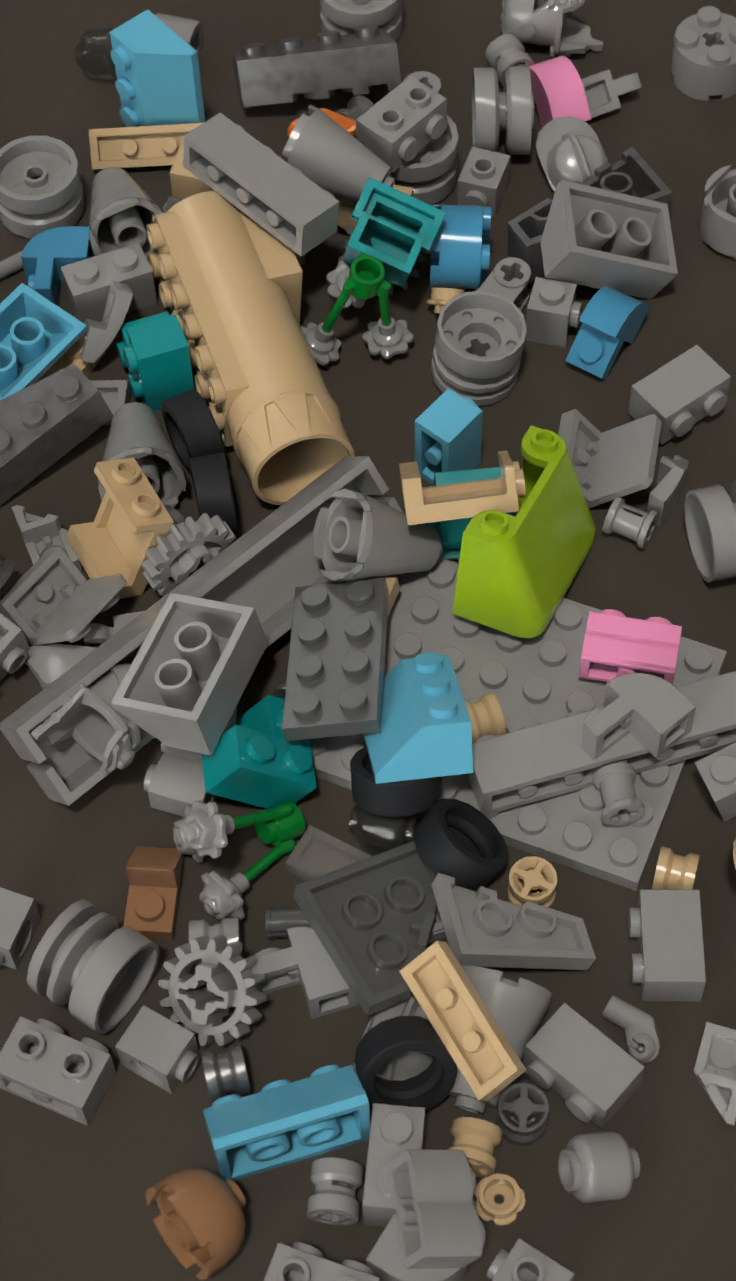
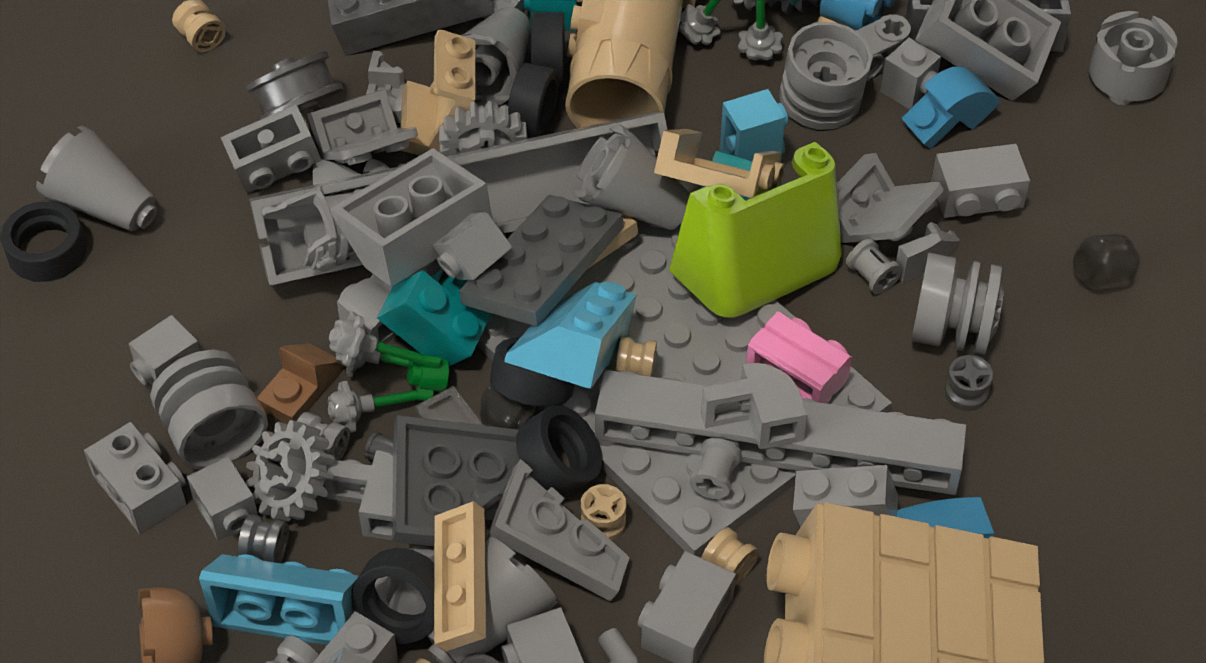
camera: 25 degrees right, 5 degrees down
(272, 679) = (471, 247): none -> light grey brick

